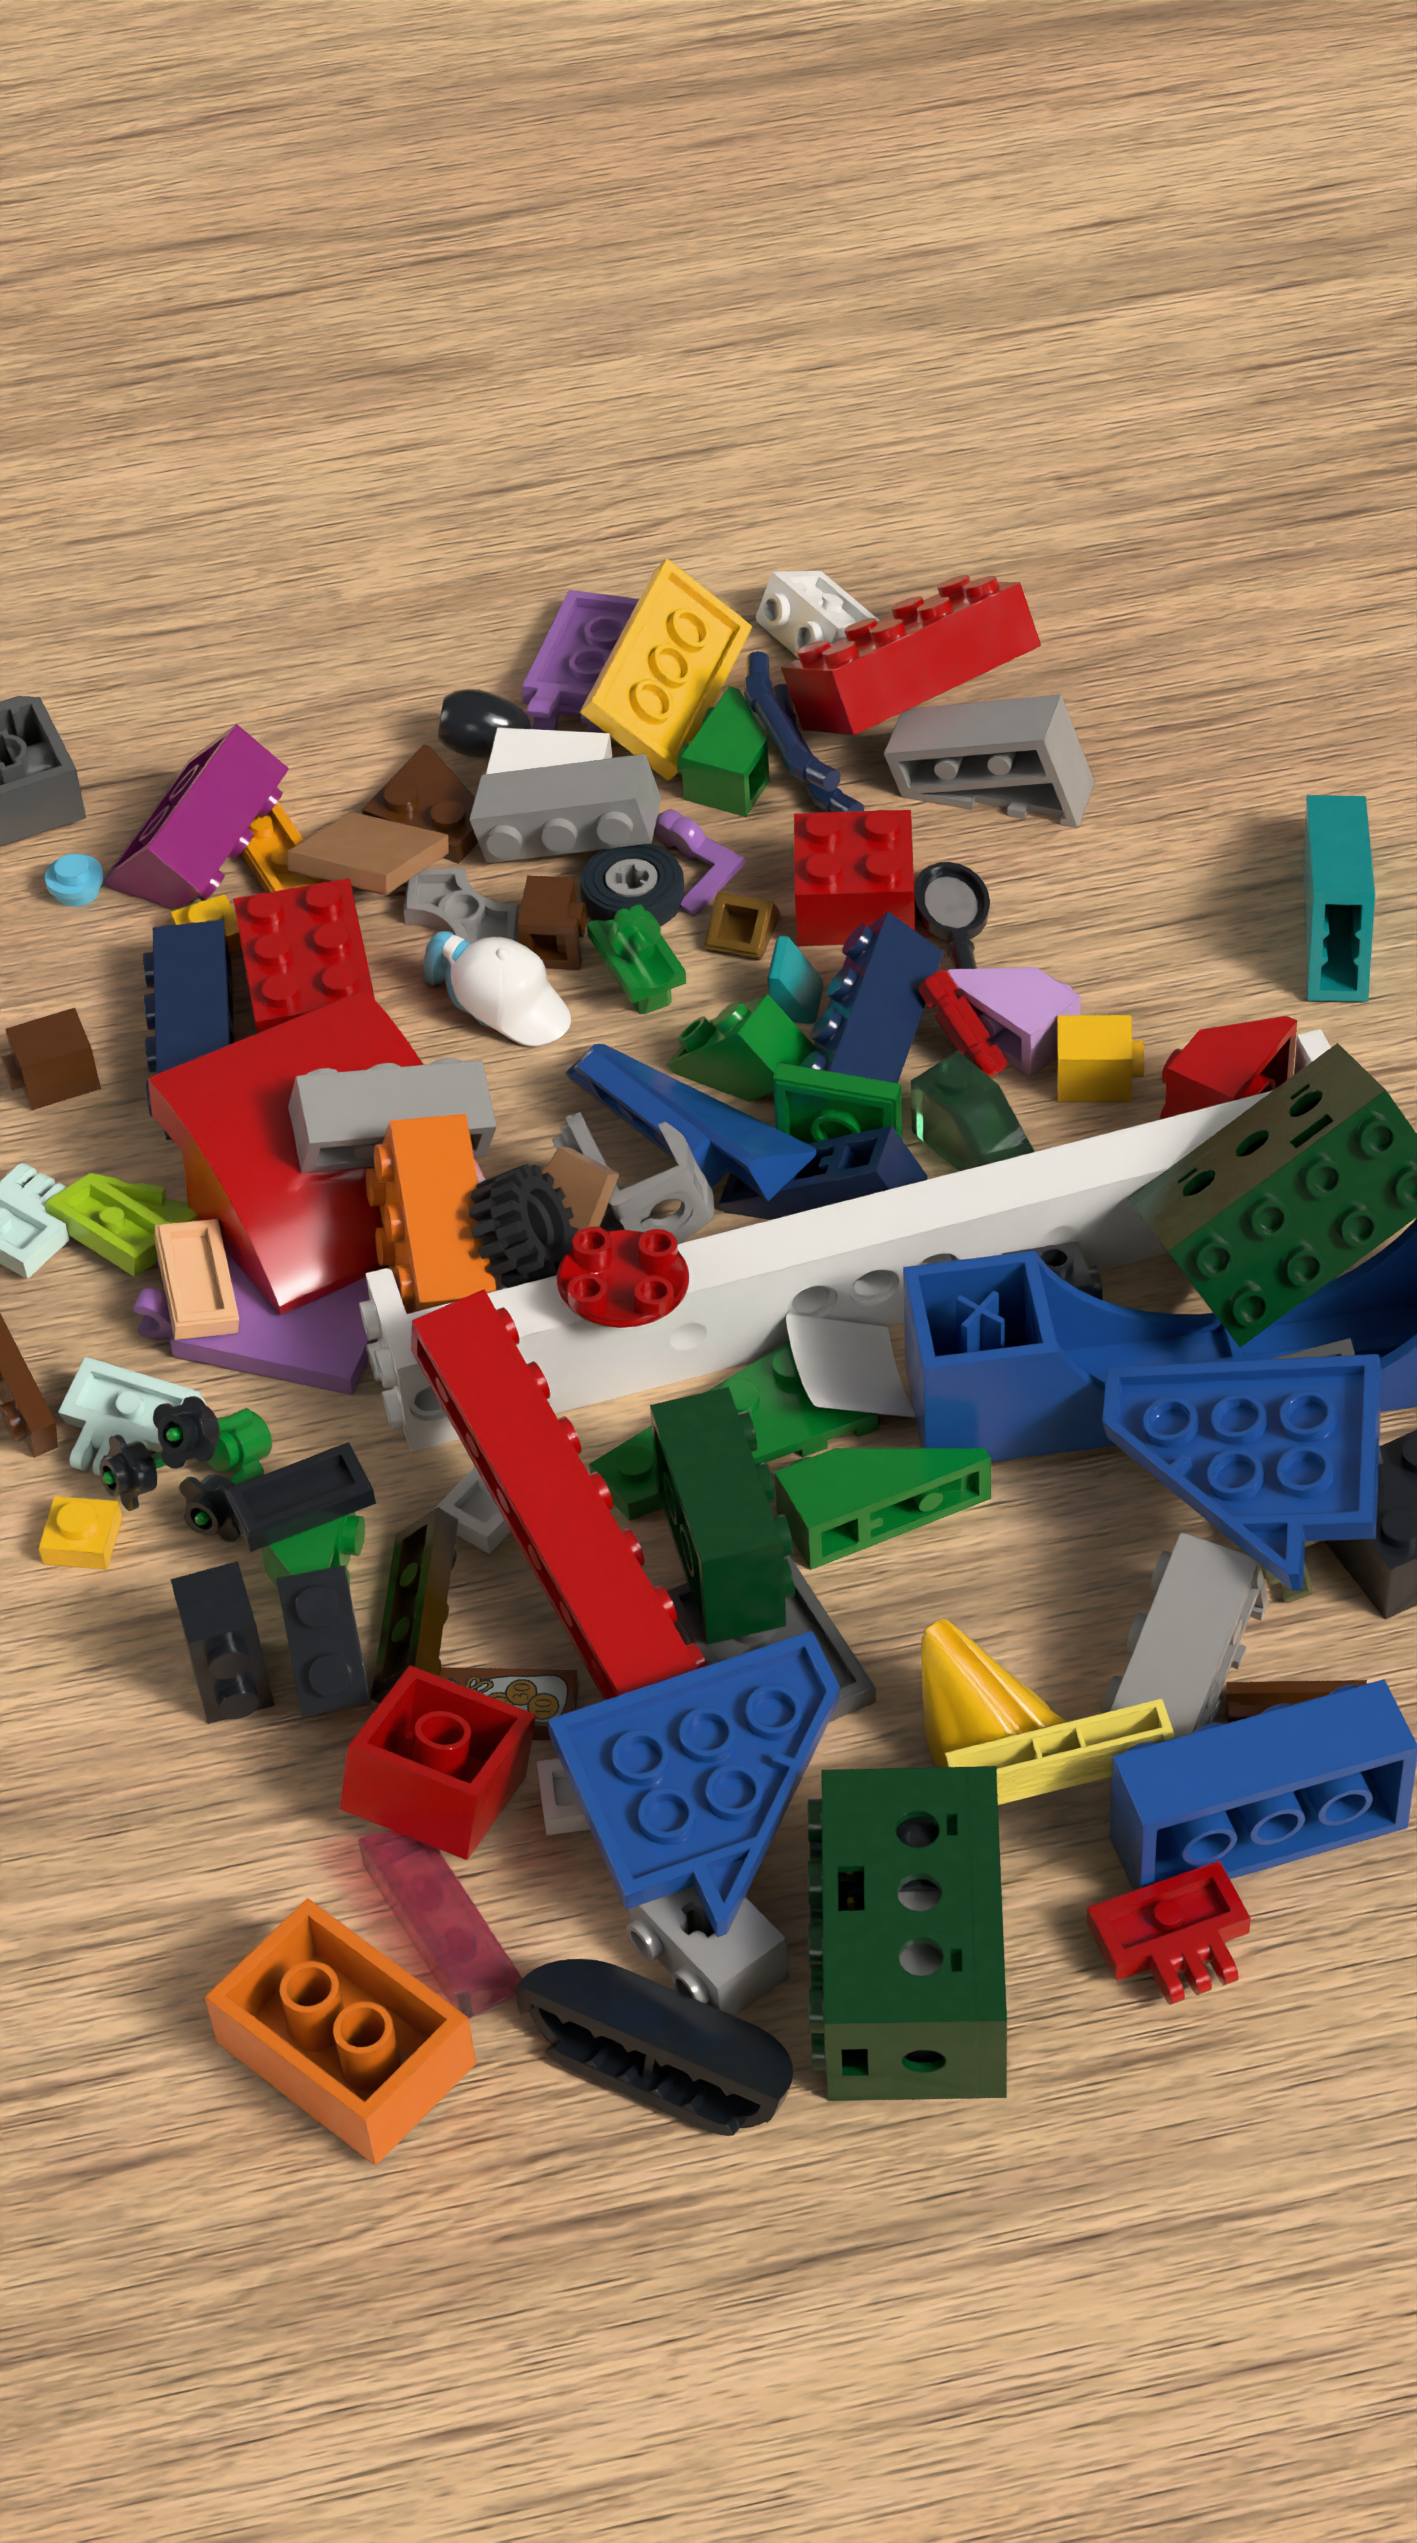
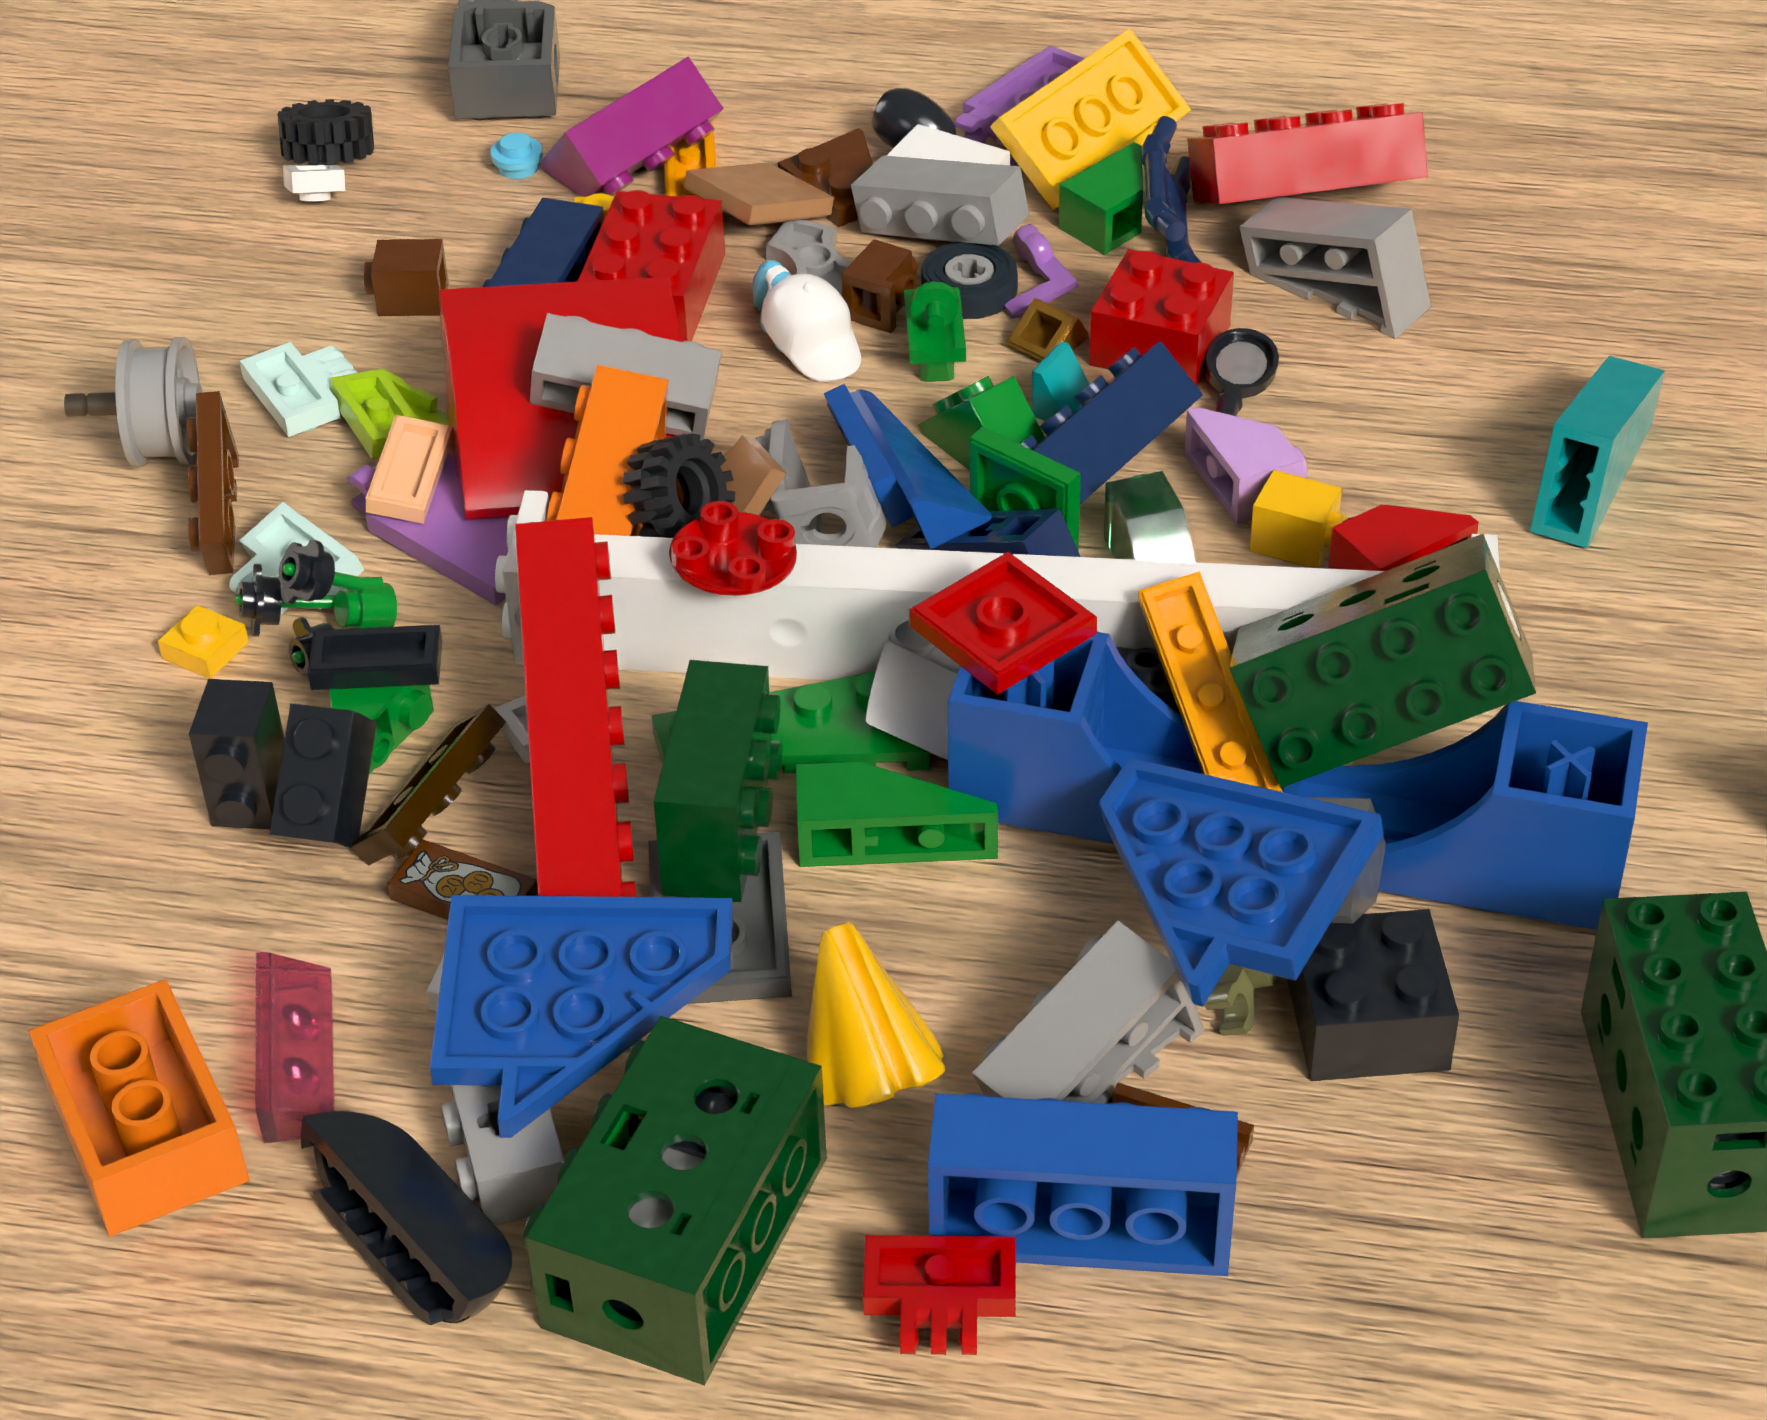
camera: 20 degrees right, 5 degrees down
(437, 1762) = (356, 909): red brick -> none
(807, 609) = (1242, 98): white bracket -> none
(934, 1271) = (1003, 622): none -> red tile
(961, 1023) = (1187, 459): red axle -> none
(1065, 1752) = (905, 1083): light yellow piece -> none
(1130, 1270) = (1202, 683): none -> light orange tile

